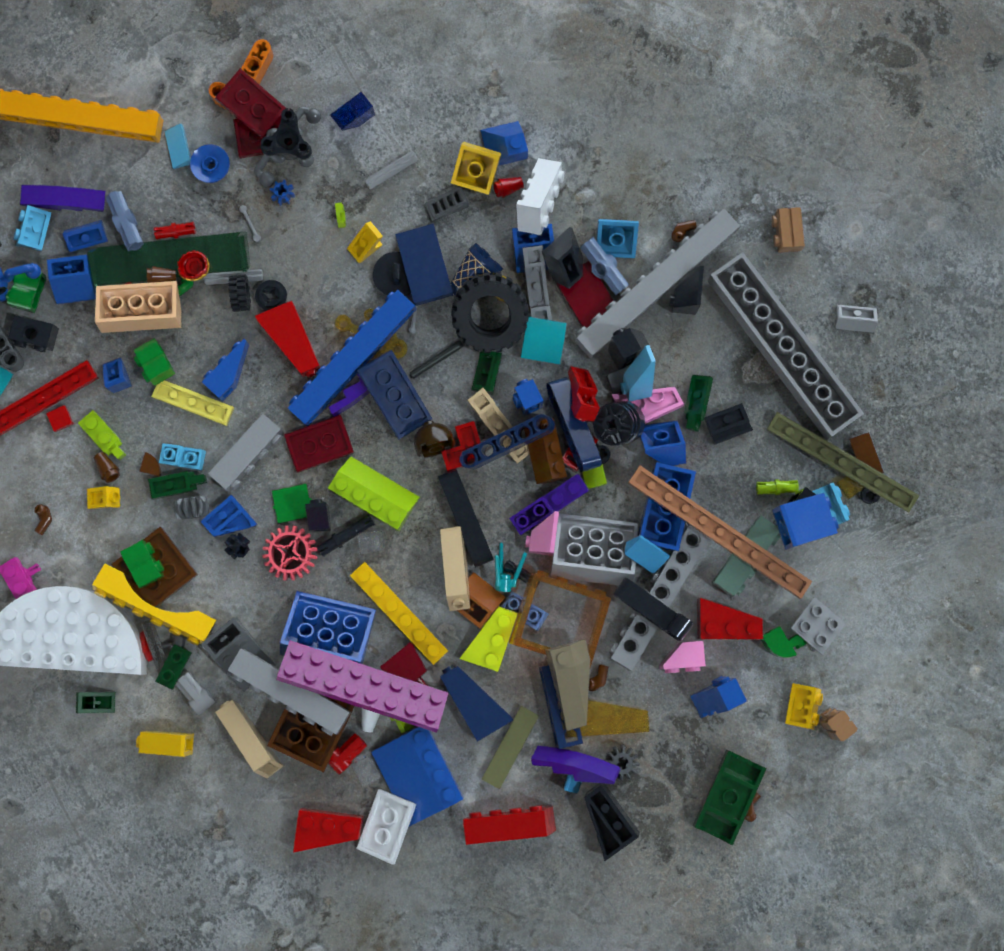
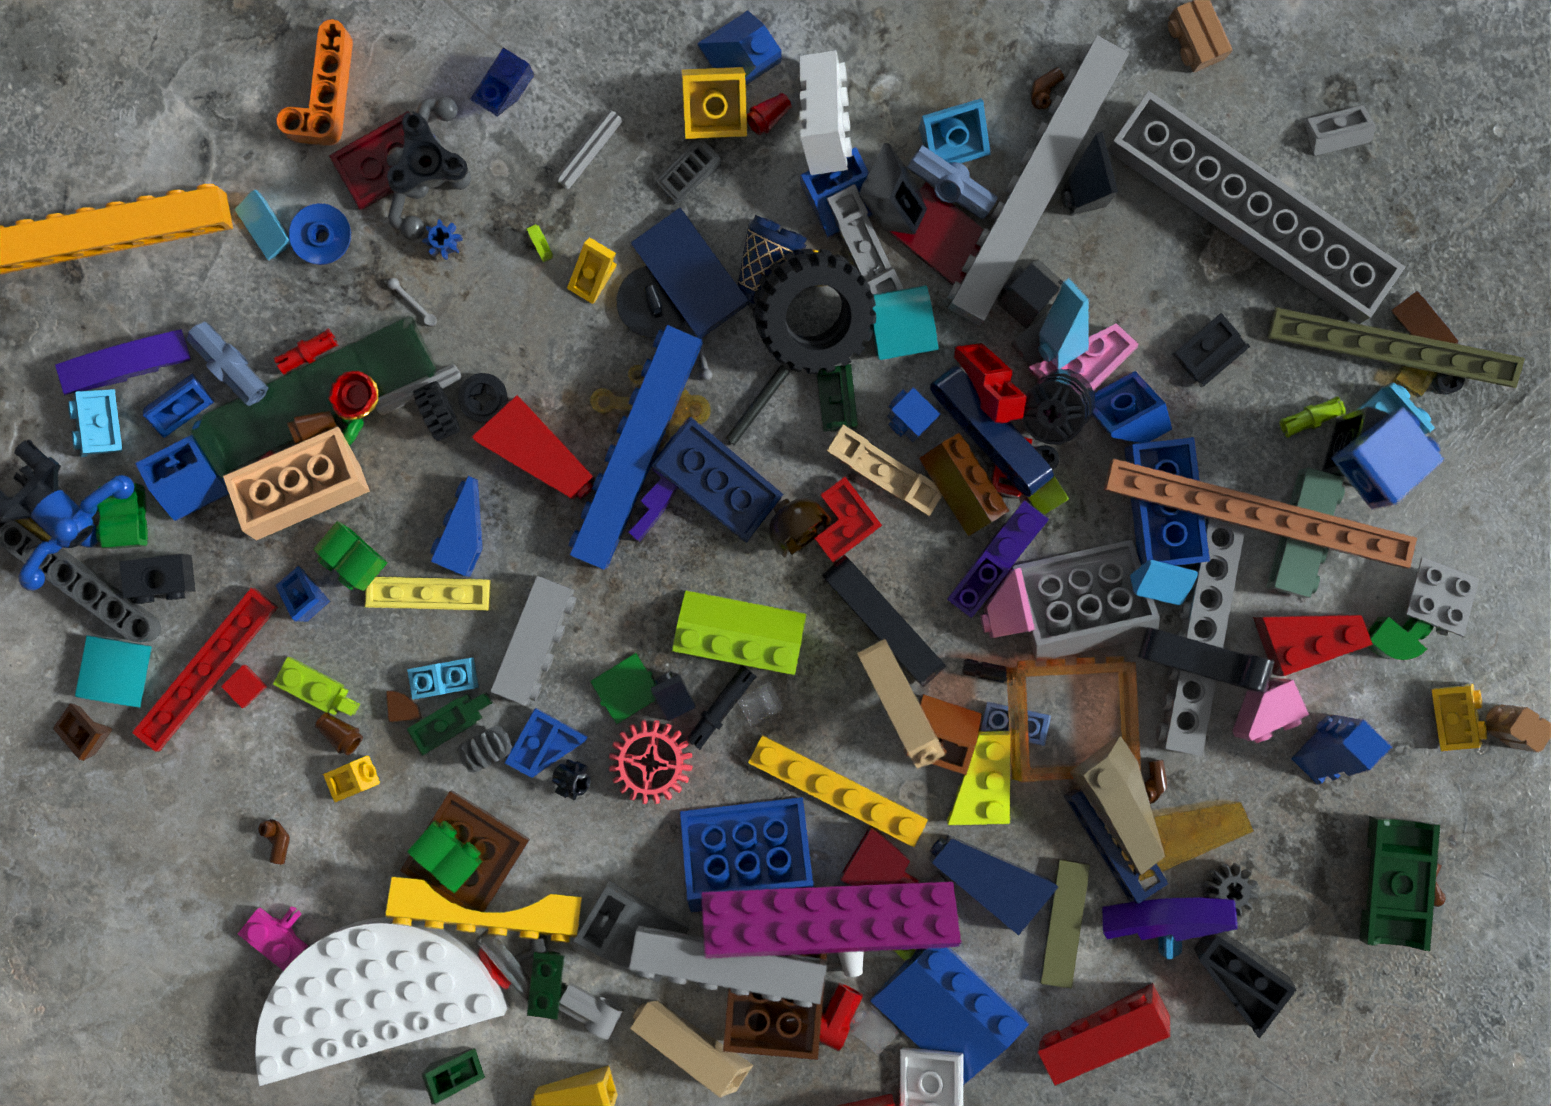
camera: 20 degrees left, 5 degrees up
(250, 103) = (346, 122): dark red tile -> none
(319, 443) = (633, 588): dark red tile -> none
(503, 581) = (971, 692): teal plant -> none
(516, 442) = (895, 501): dark blue beam -> none
(697, 401) = (1155, 332): dark green hinge -> none

